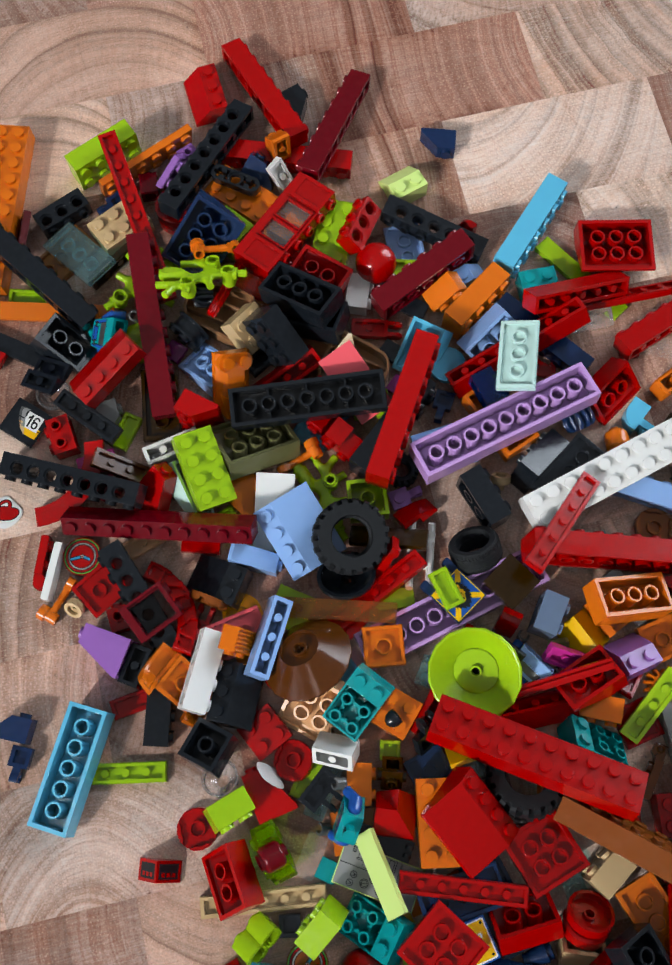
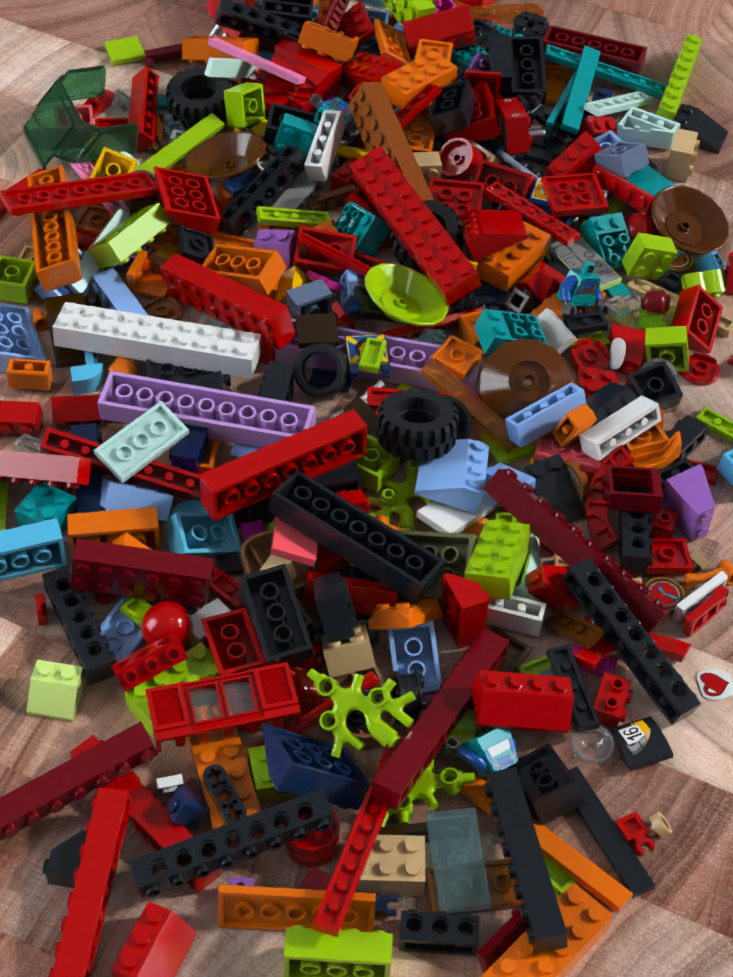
camera: 145 degrees left, 25 degrees down
(47, 375) = (588, 754): black slope -> none
(171, 170) = (281, 866): medium lavender tile -> none
(199, 249) = (331, 741): orange brick -> none
(278, 144) = (144, 796): orange slope -> none
(381, 875) = (584, 243): yellowish green tile -> none
(561, 523) = (244, 312): red tile -> none

